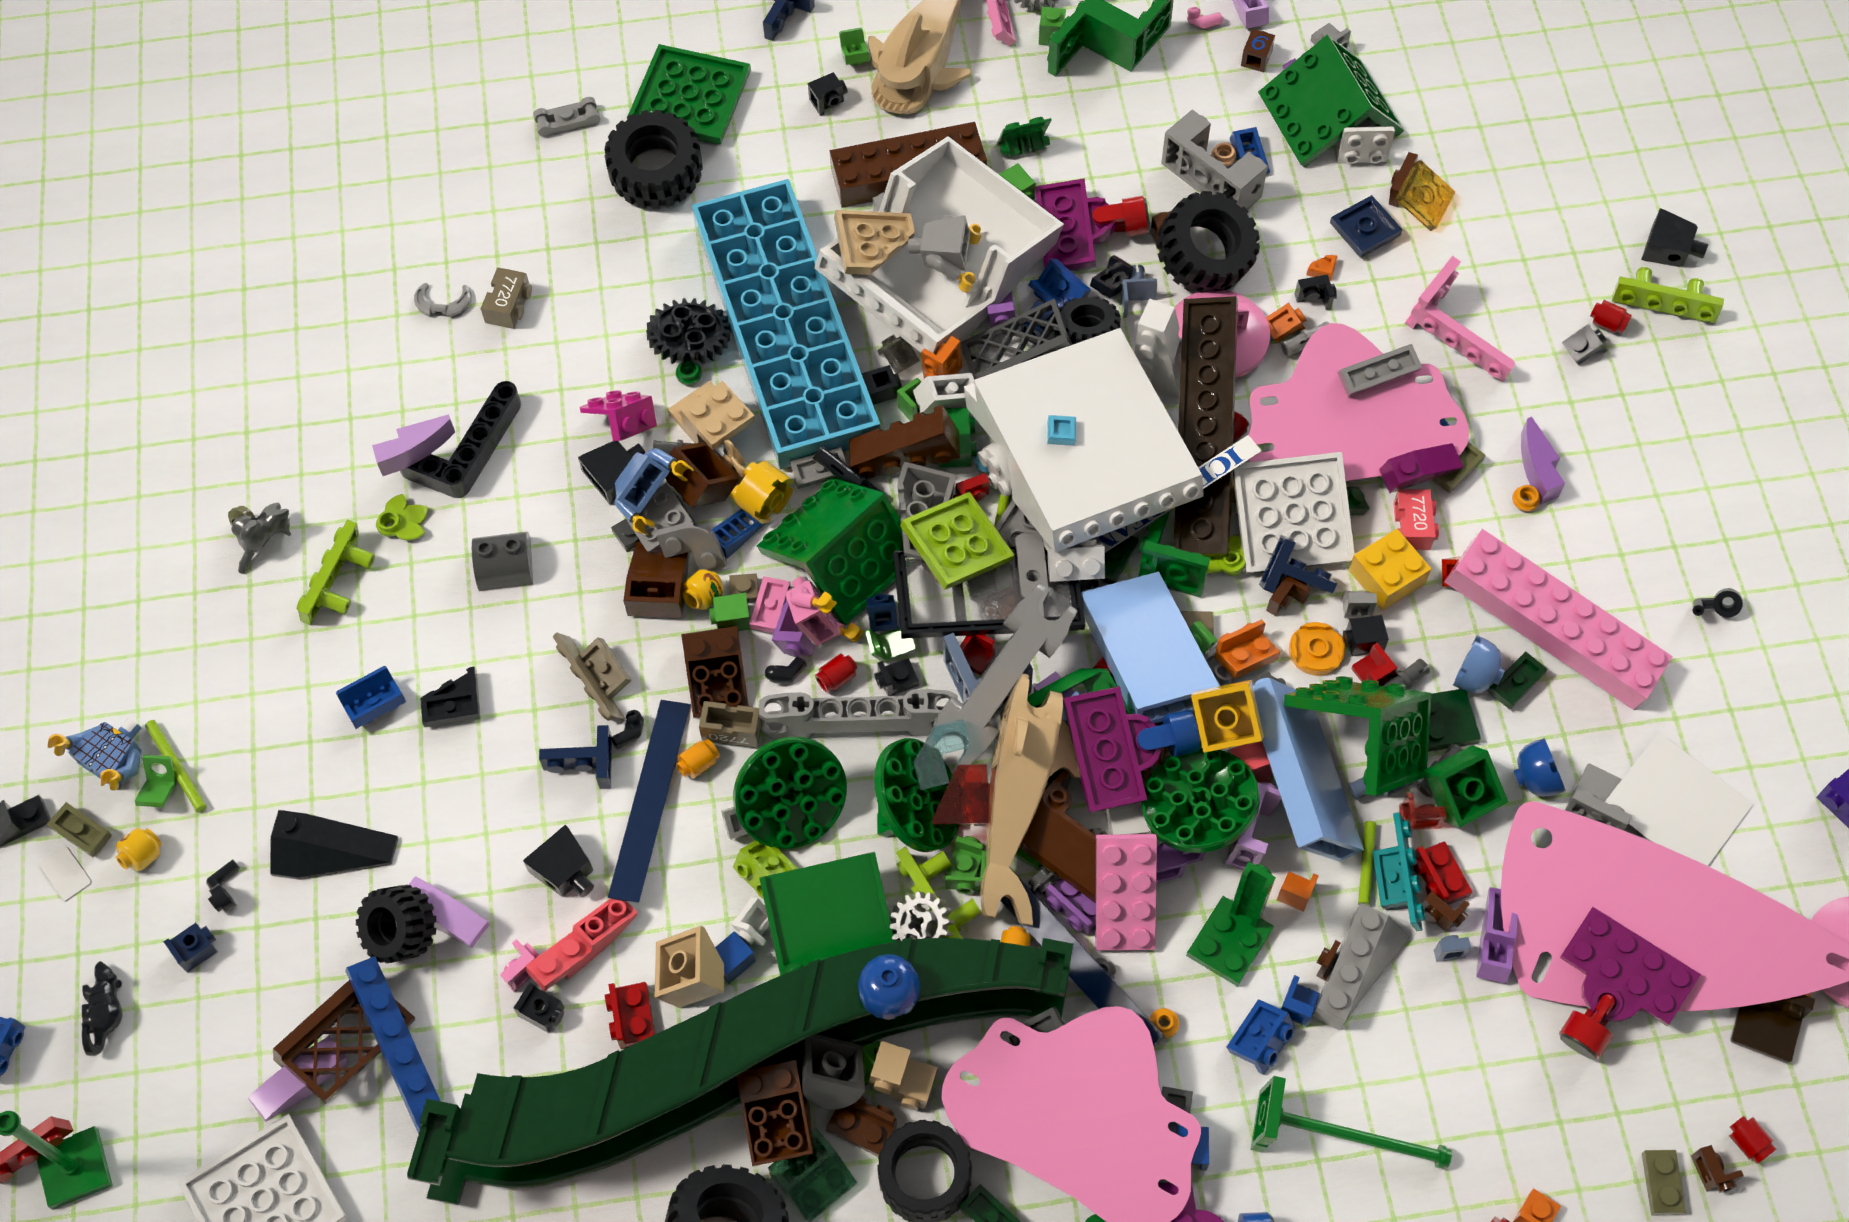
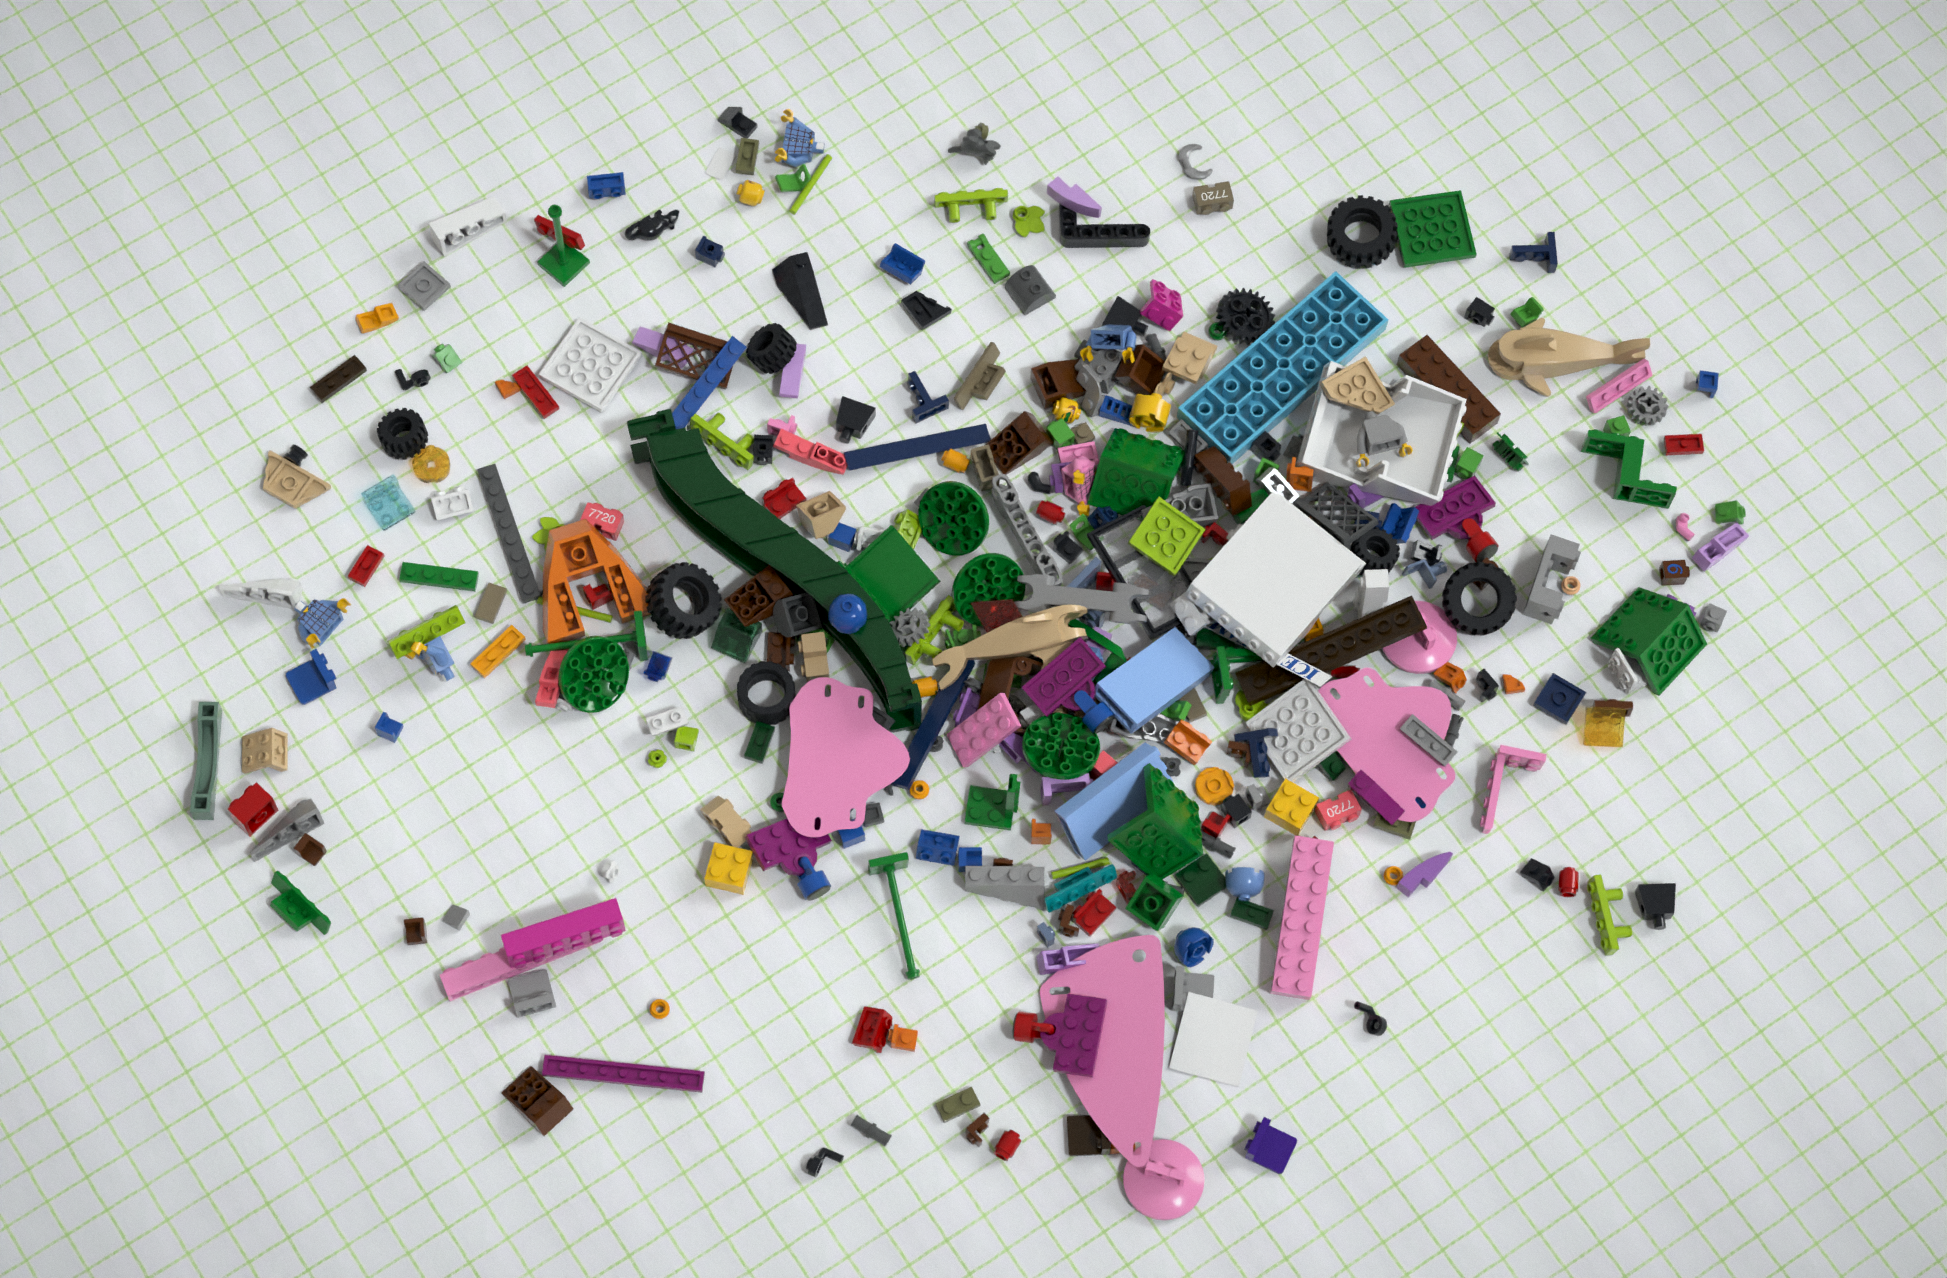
camera: 60 degrees right, 5 degrees up
(220, 897) = (744, 250): black plate -> none
(426, 591) = (988, 259): none -> bright green plate
(505, 1057) = (728, 447): none -> lime plate
(566, 117) = (1373, 164): light grey plate -> none
(632, 730) = (956, 417): black arm -> none
(930, 762) = (1007, 582): clear light blue tile -> none
(1031, 563) = (1157, 598): light grey piece -> none
(1061, 430) = (1264, 558): medium azure tile -> none
(1227, 716) = (1116, 734): yellow brick -> none
(1245, 135) = (1592, 590): blue slope -> none

